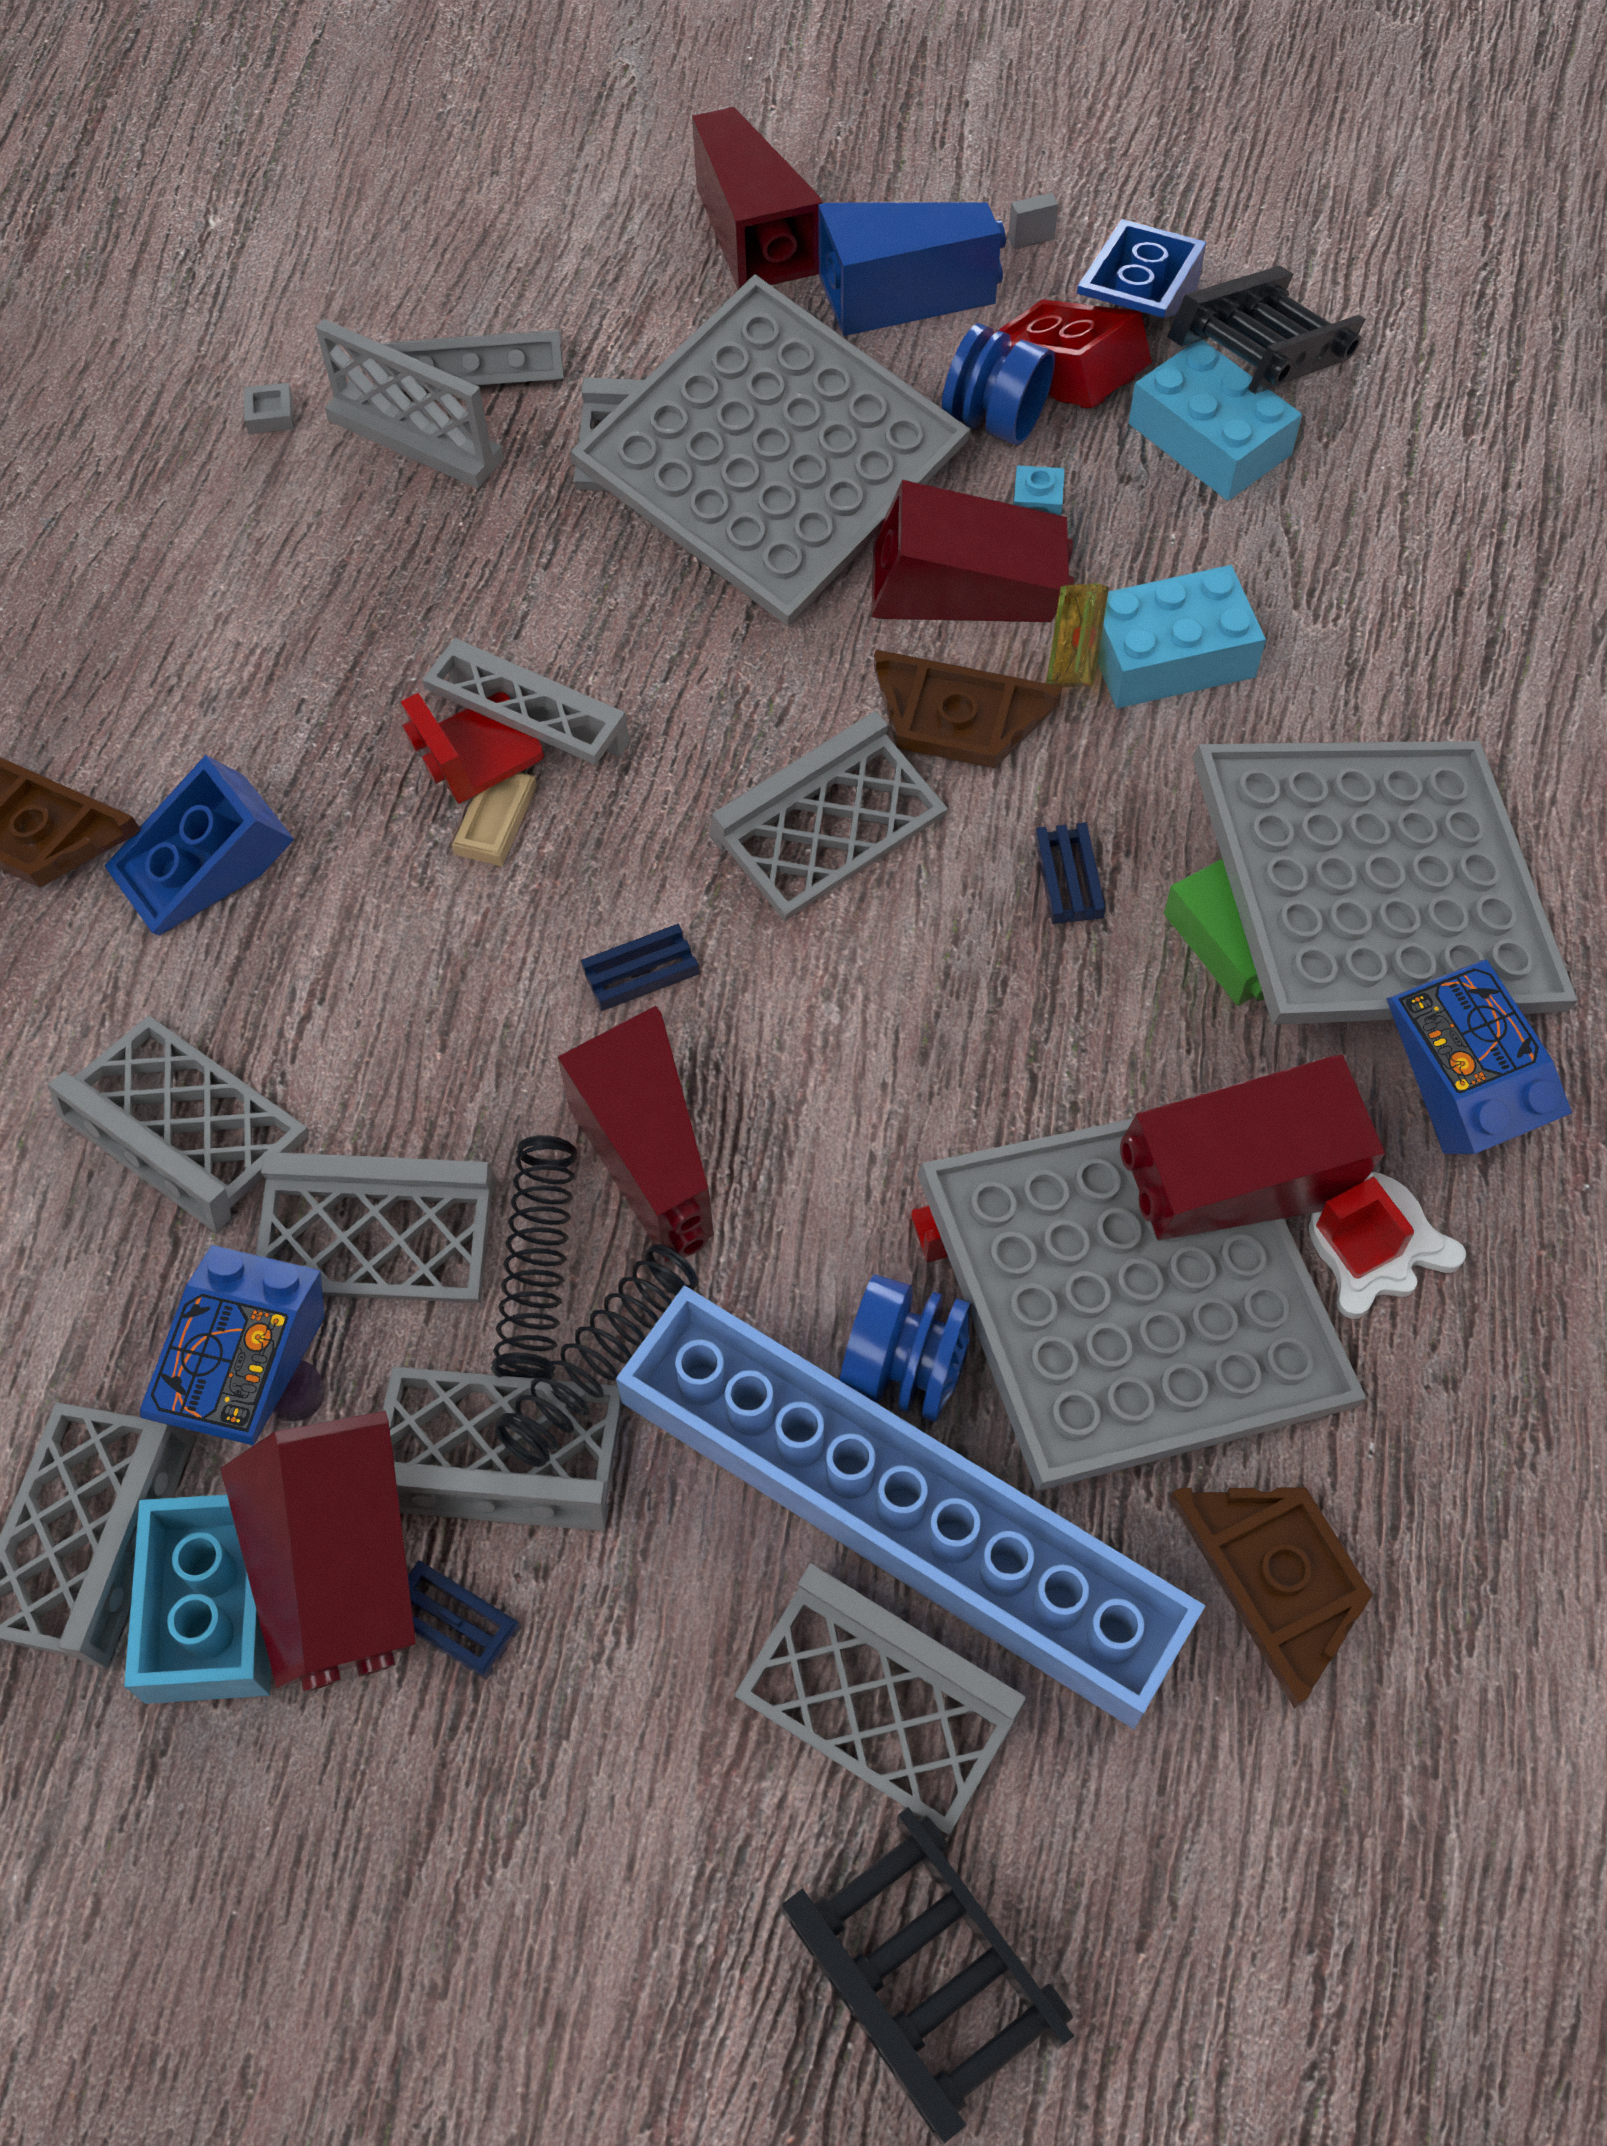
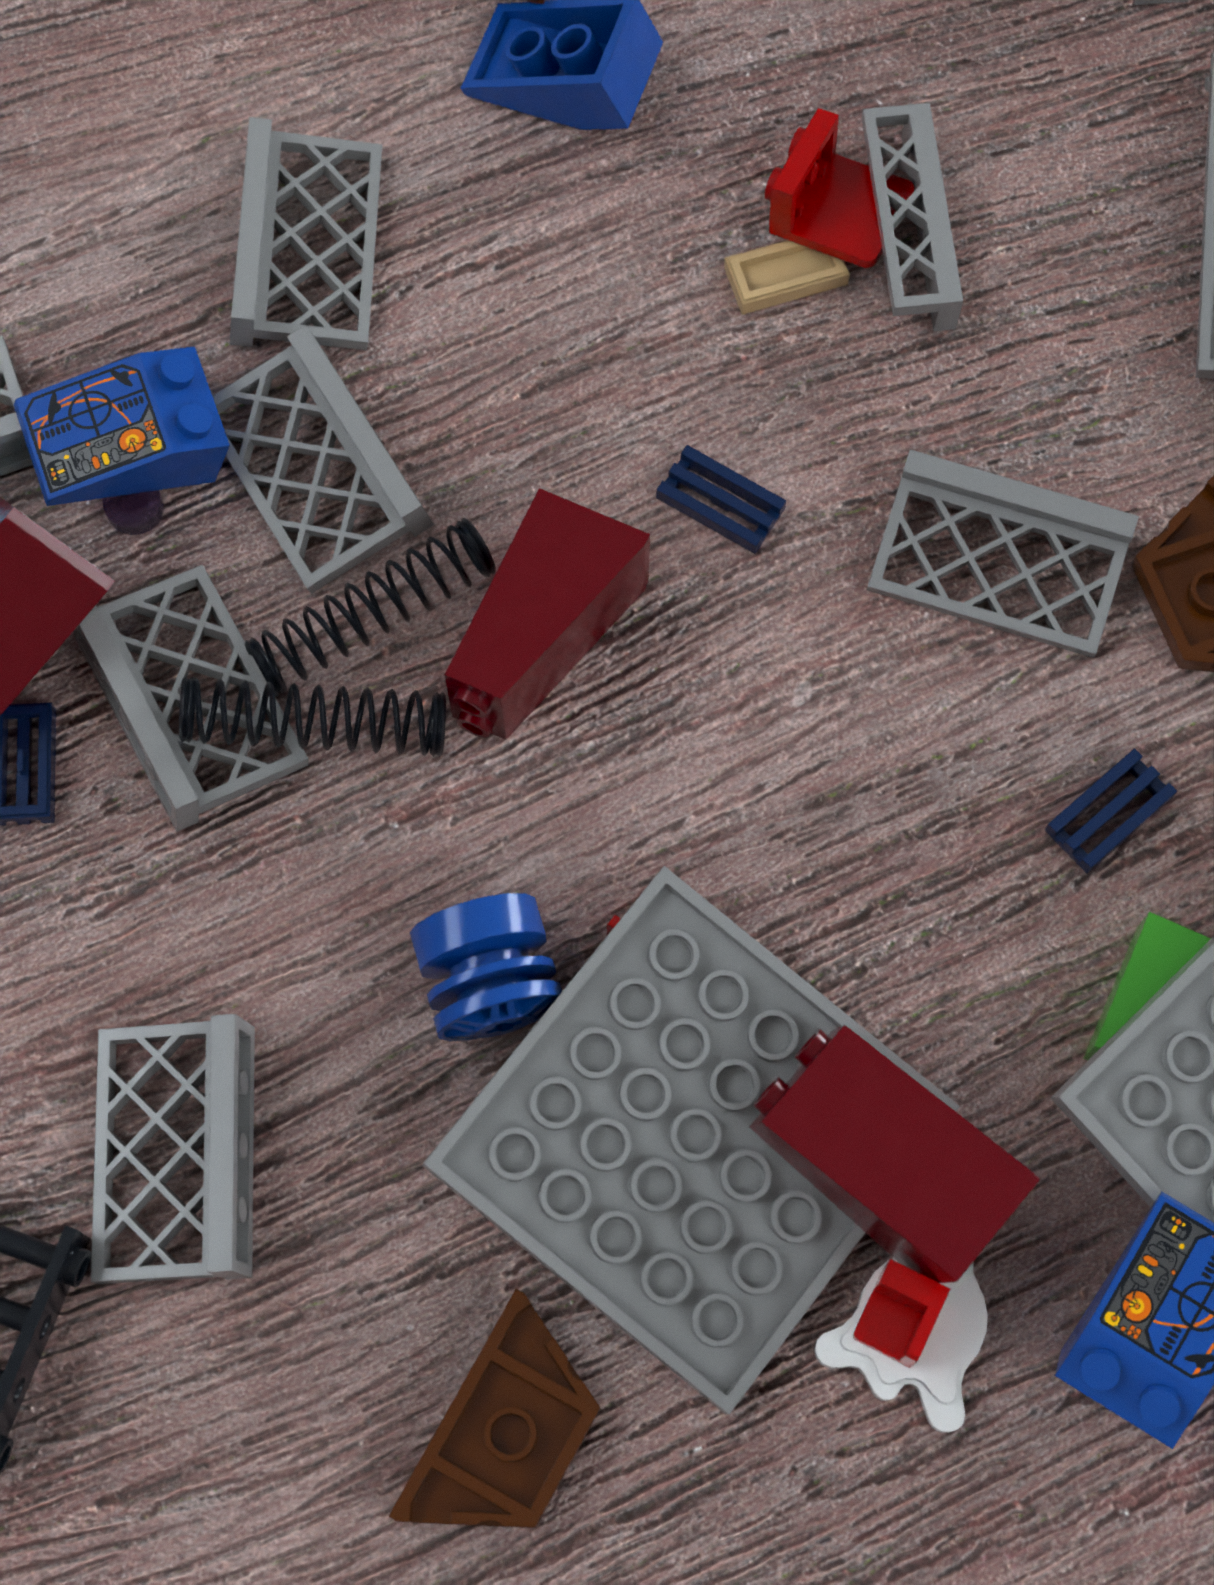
camera: 55 degrees right, 10 degrees up
(911, 1505) = (345, 1068): light blue brick -> none

